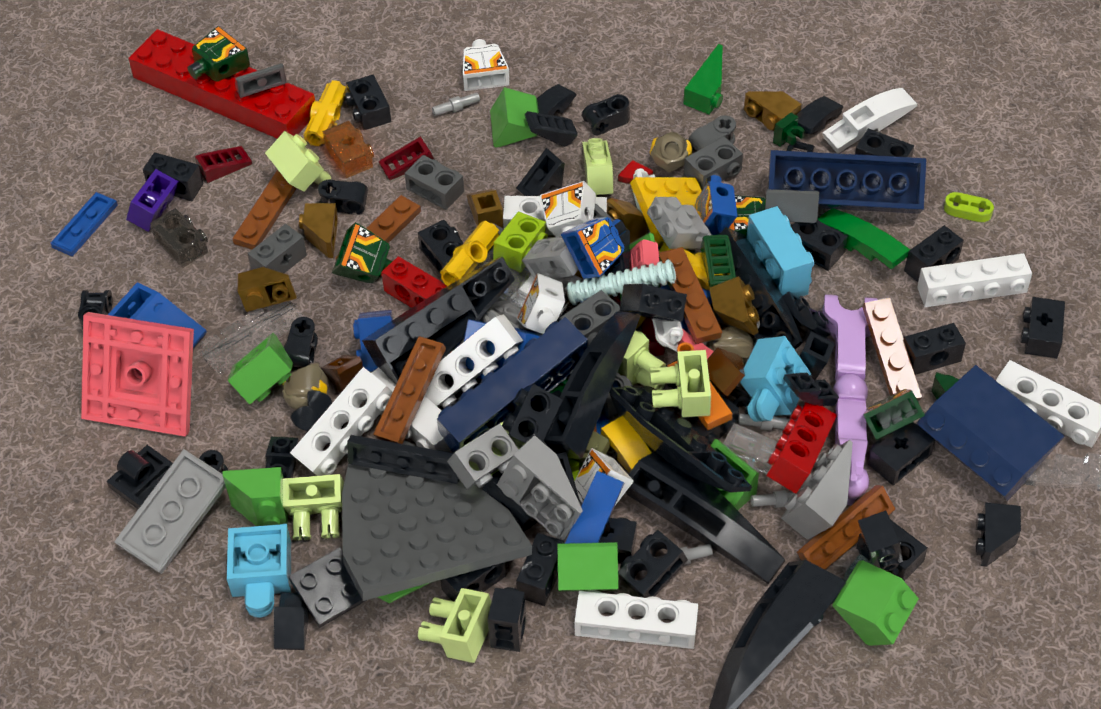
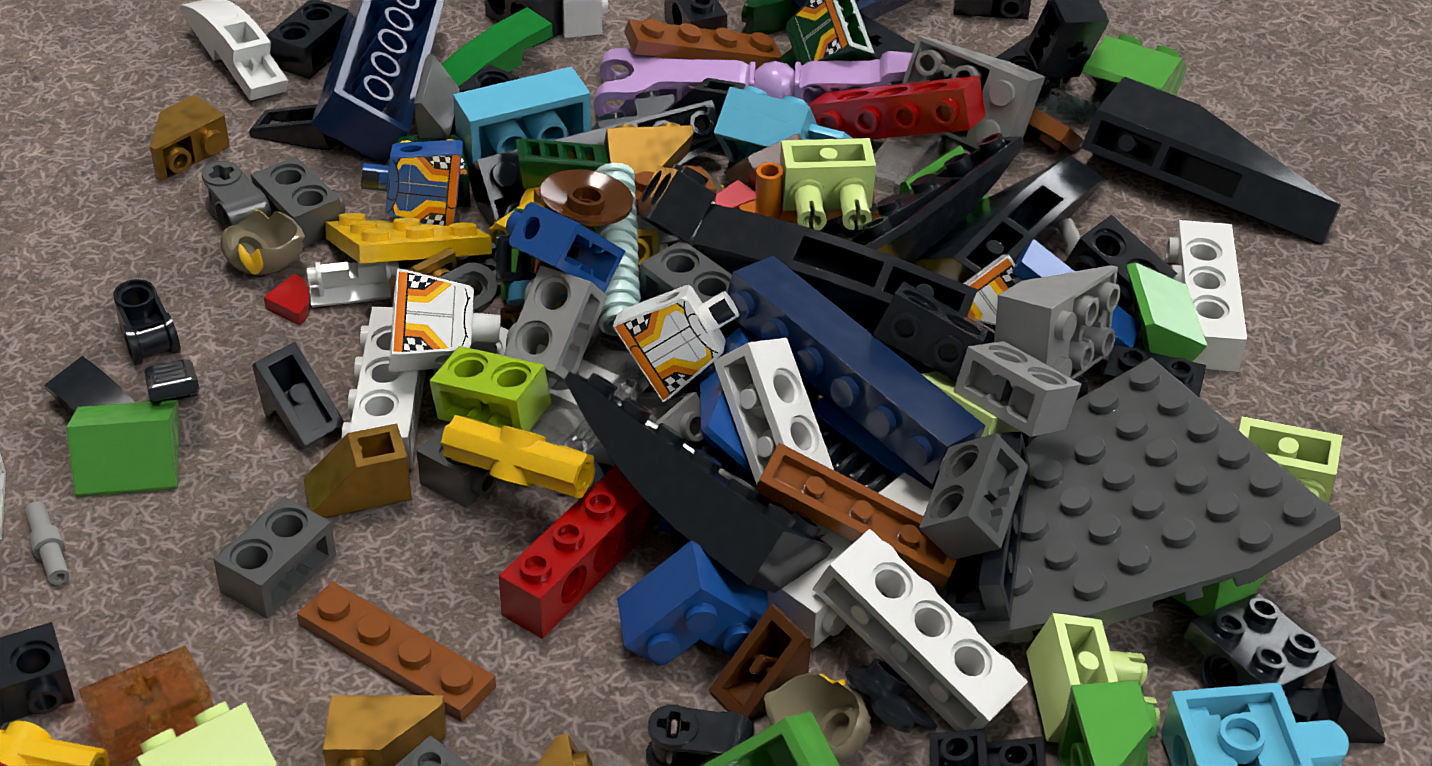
camera: 95 degrees left, 10 degrees down
(348, 196) = (292, 707): black piece -> none
(361, 255) = (481, 643): dark green torso -> none
(401, 430) = (974, 497): none -> dark grey brick
(408, 150) = (182, 579): dark red slope -> none
(439, 243) = (460, 533): black brick -> none
(507, 619) = (1269, 392): black brick -> none
(598, 166) = (296, 316): yellowish green slope -> none
(636, 242) = (586, 197): none -> reddish brown dish
(677, 223) = (472, 201): light grey plate -> none
(704, 88) = (95, 202): green slope -> none
(787, 130) = (241, 124): dark green tile -> none
(811, 391) = (807, 86): black slope -> none
(814, 115) = (209, 88): black slope -> none

